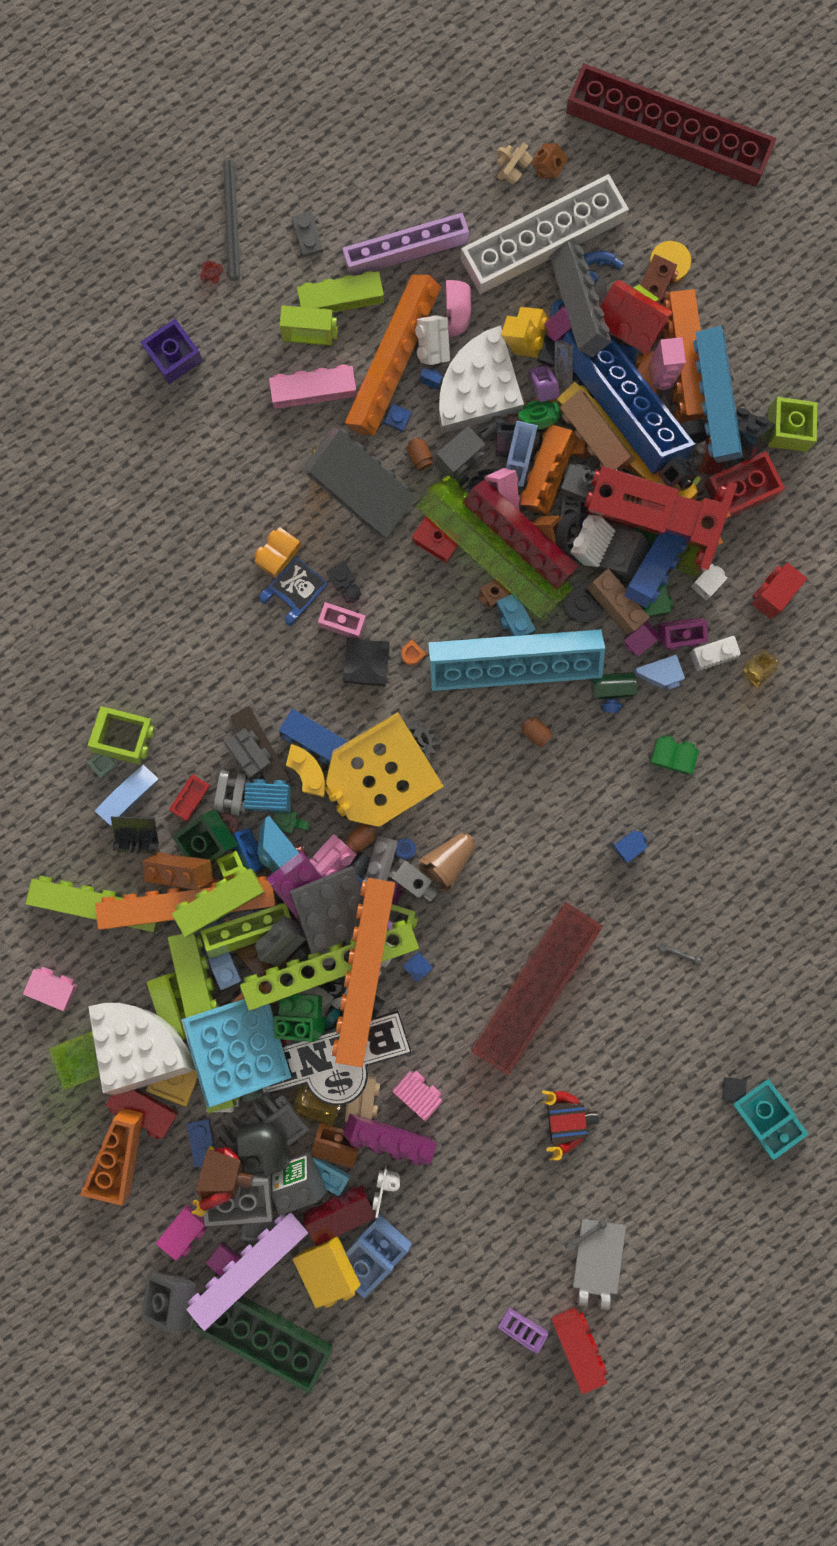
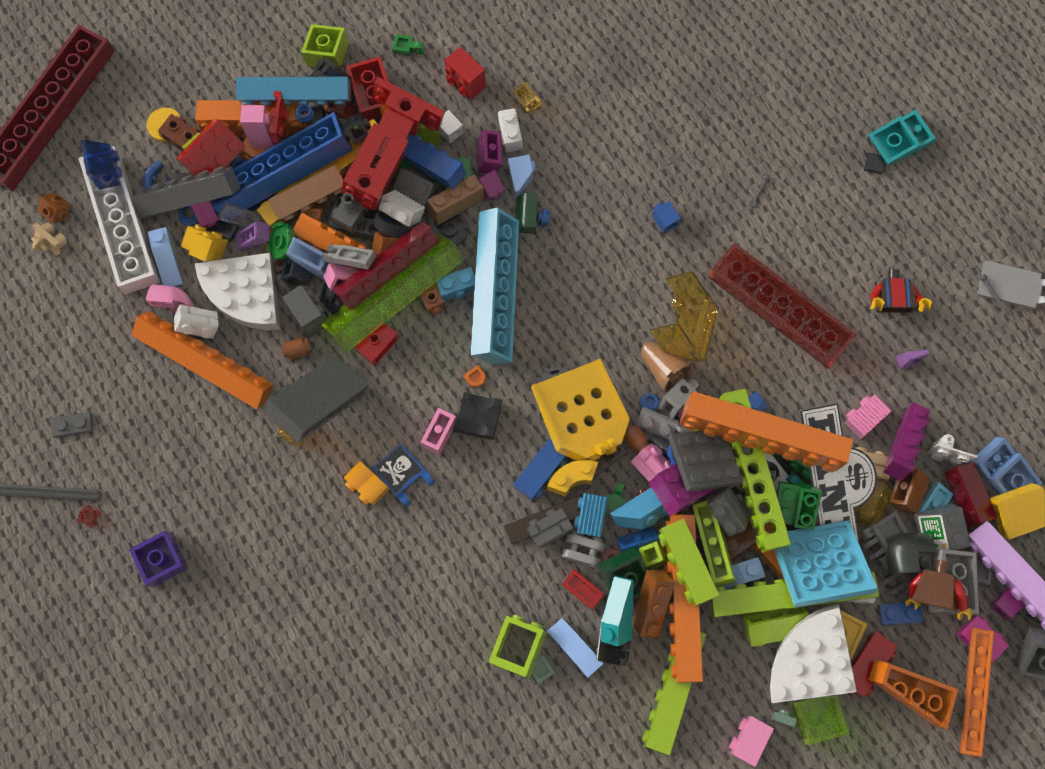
camera: 75 degrees left, 10 degrees down
(77, 1022) = (784, 718): none -> sand green plate
(124, 1227) = (976, 692): none -> orange tile
(159, 834) = (618, 613): none -> teal slope
(308, 325) = (160, 429): lime window -> none
(312, 386) = (217, 434): bright pink brick -> none
(342, 577) = (397, 430): black plate -> none
(343, 293) = (135, 400): lime brick -> none
(397, 417) = (259, 364): blue plate -> none
(406, 245) = (103, 337): lavender brick -> none
(431, 378) = (229, 330): blue plate -> none
(493, 1141) = (911, 358): none -> medium lavender slope
(500, 889) = (695, 320): none -> clear yellow windscreen
(508, 293) = (165, 256): none -> light blue slope
(524, 492) = (349, 256): none -> light grey hinge
(536, 731) = (558, 280): dark orange brick -> none
(599, 199) = (101, 164): none -> clear blue slope
(674, 755) = (592, 173): green brick -> none
(678, 383) = (278, 118): none -> red wing
(694, 406) = (301, 109): none -> blue plate
(810, 515) = (405, 44): none -> green plate

